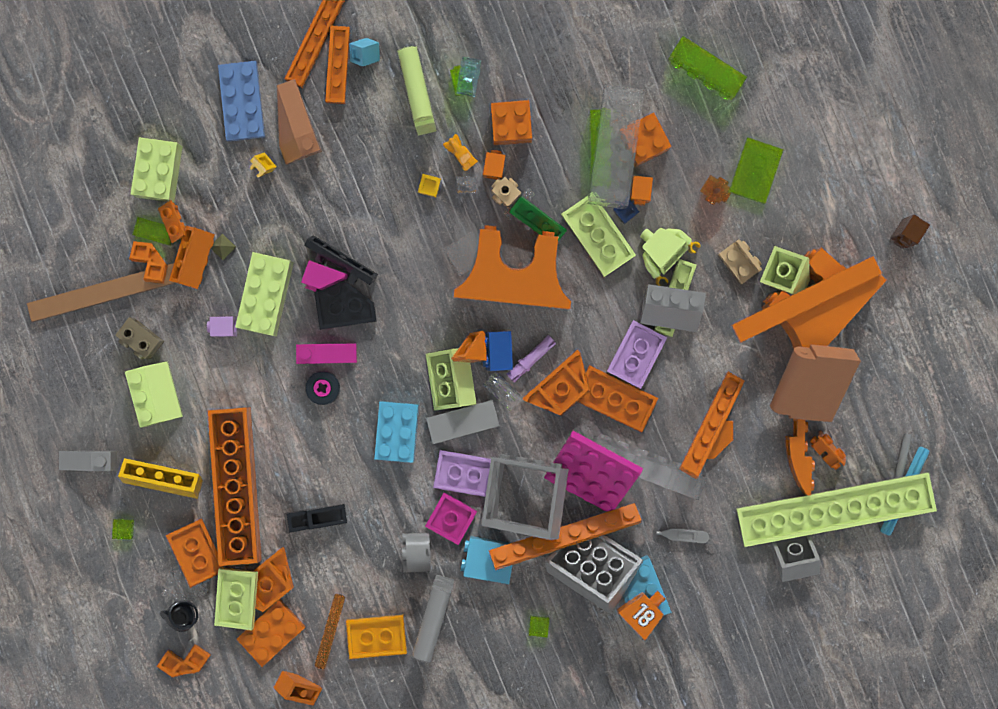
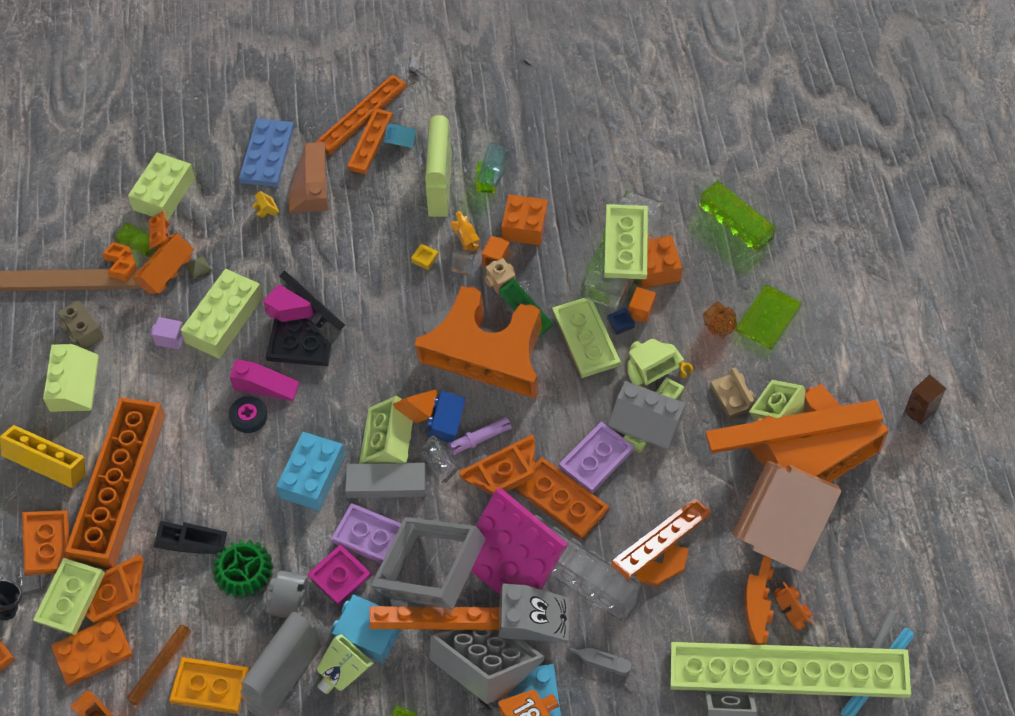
camera: 15 degrees right, 30 degrees down
(374, 541) = (224, 576): none -> green gear
(481, 599) = (341, 665): none -> yellowish green torso
(621, 149) = (626, 241): none -> yellowish green plate
(623, 524) = (532, 614): none -> light grey slope

